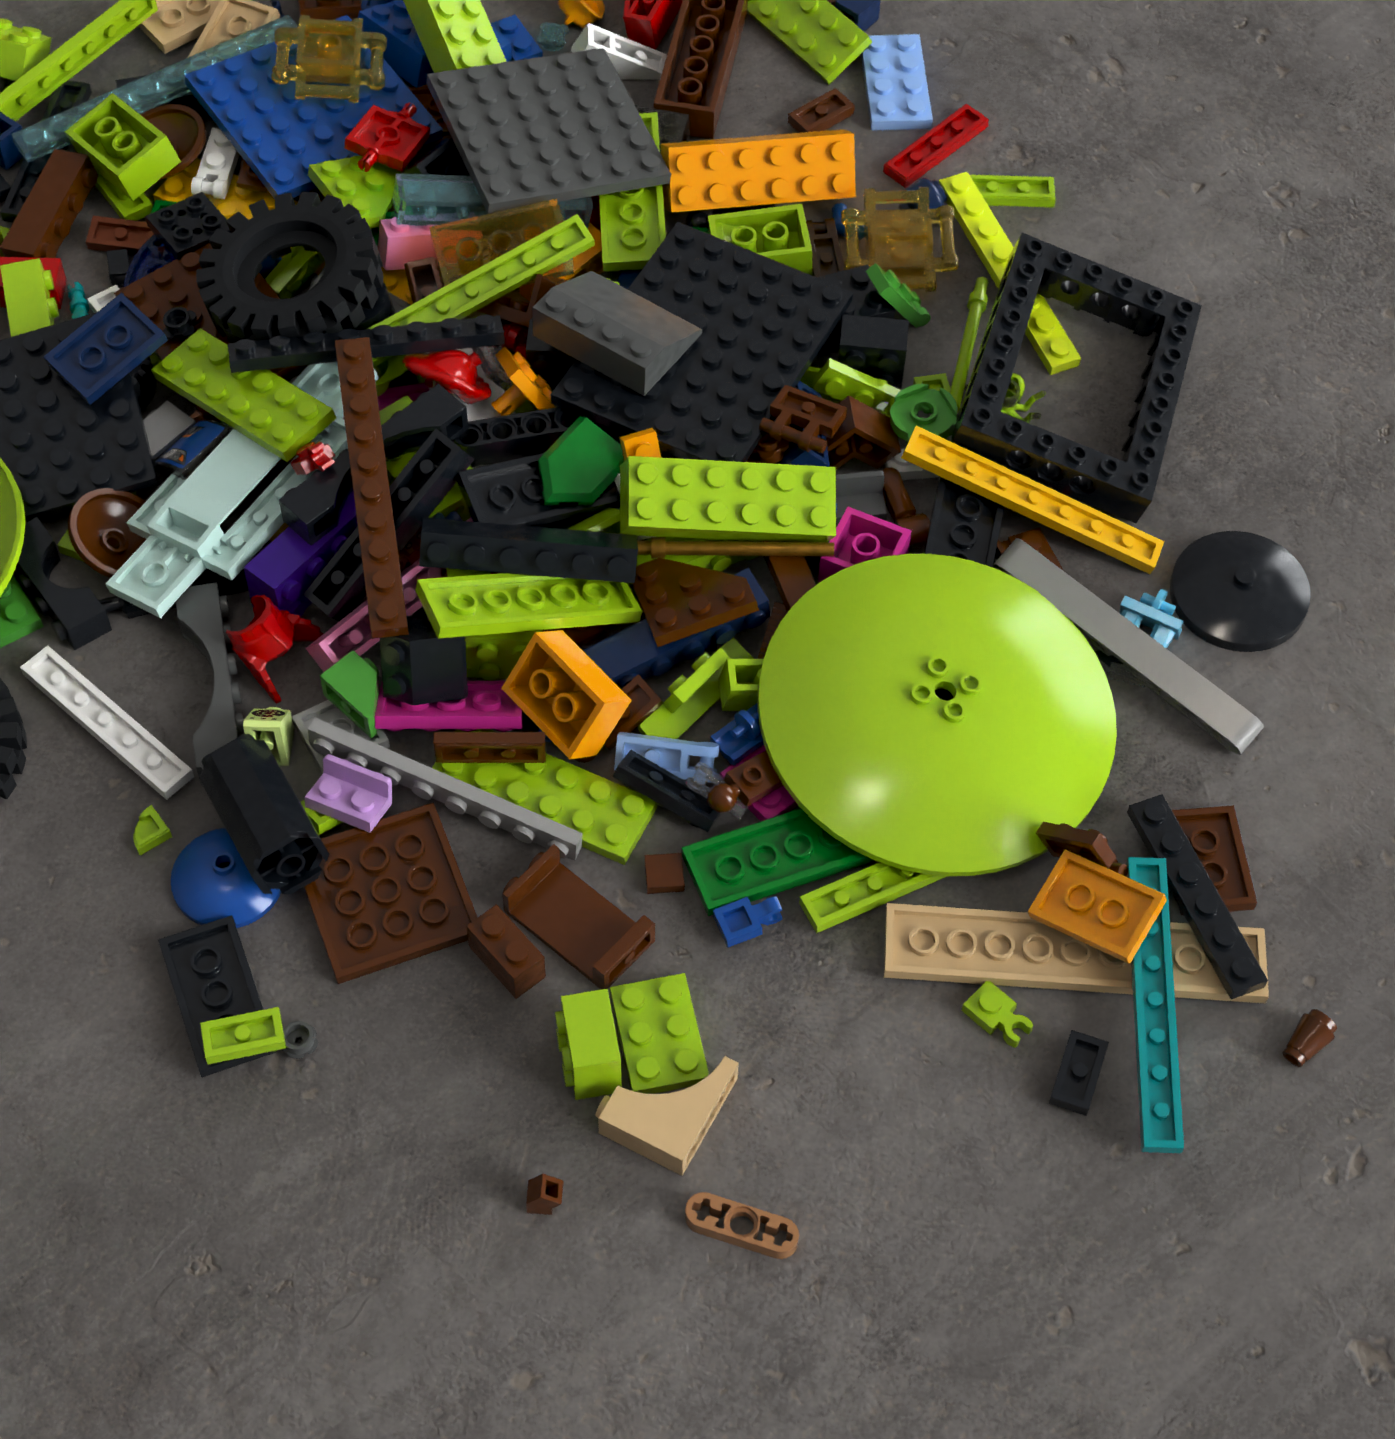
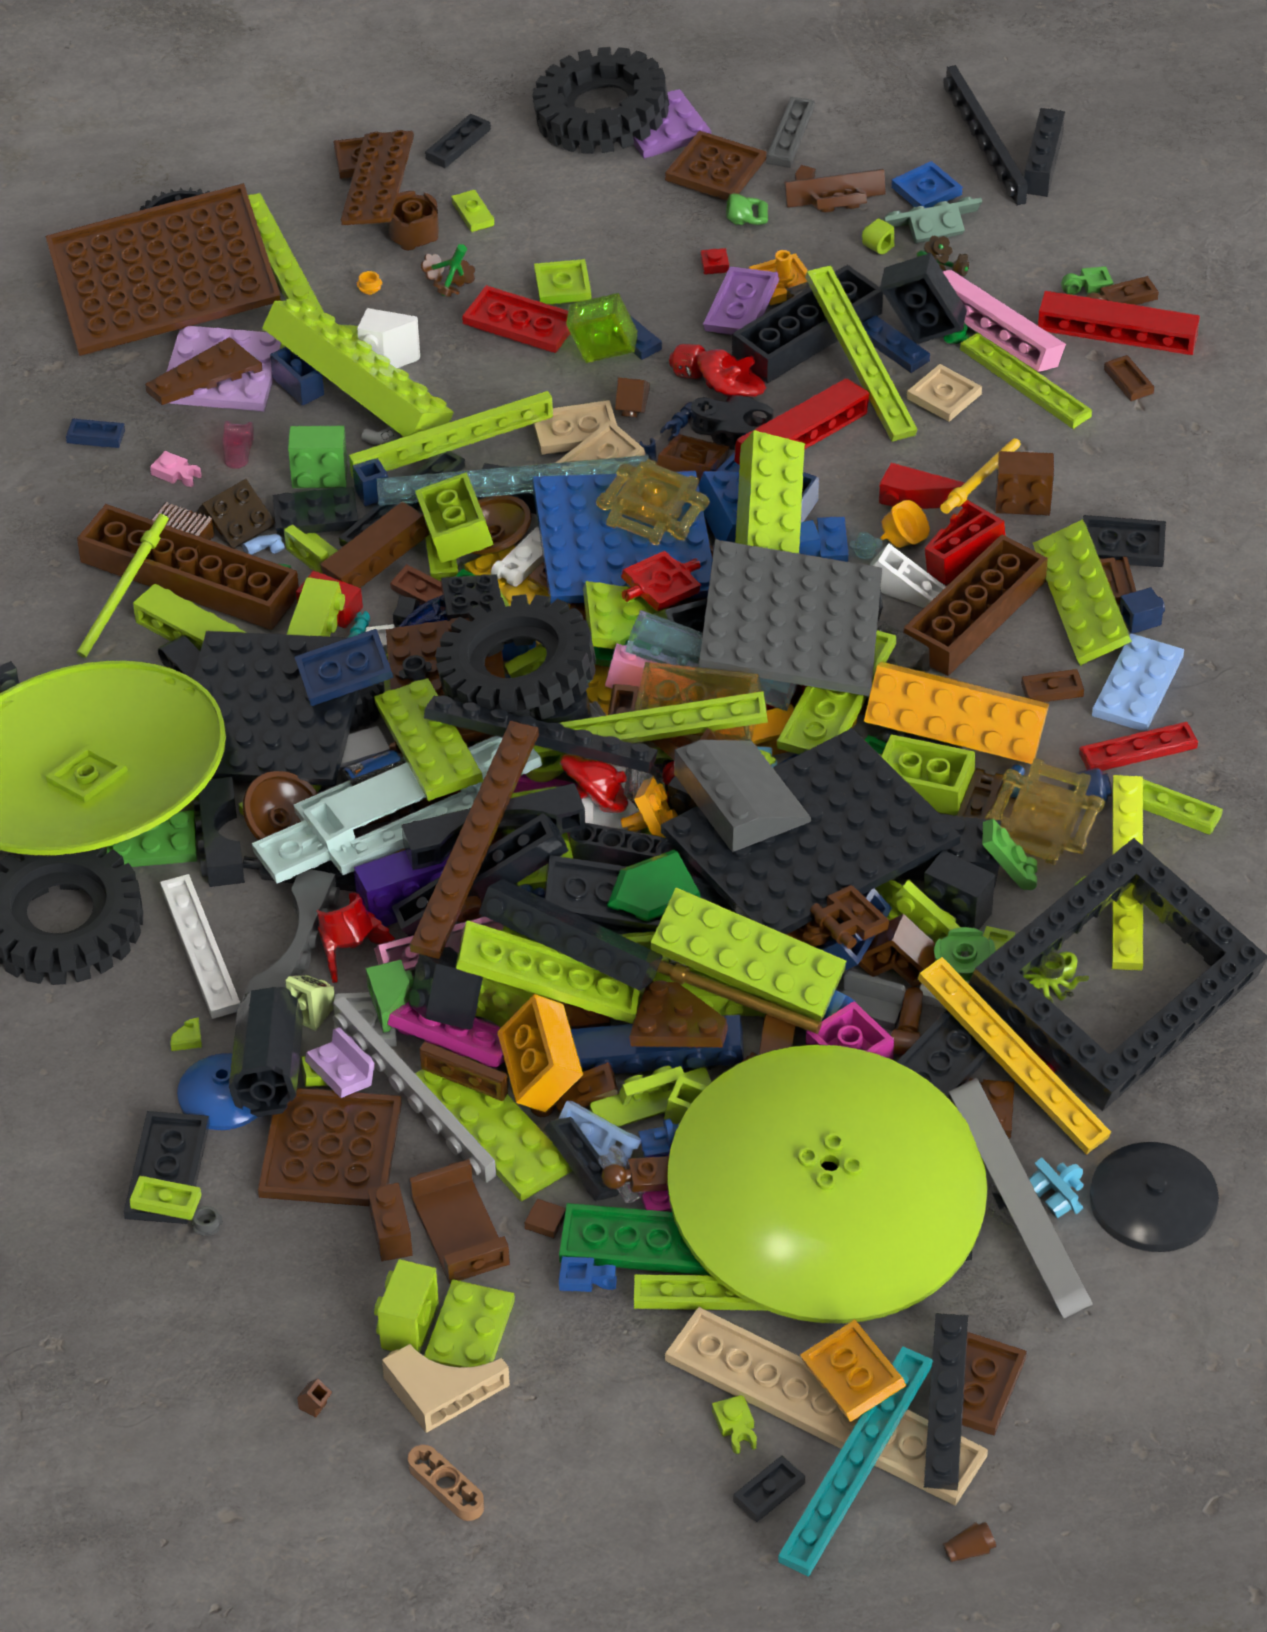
camera: 30 degrees right, 10 degrees down
(313, 457) = (447, 804): red plate -> none
(641, 444) = (707, 888): light orange plate -> none
(1085, 843) = (872, 1322): reddish brown plate -> none

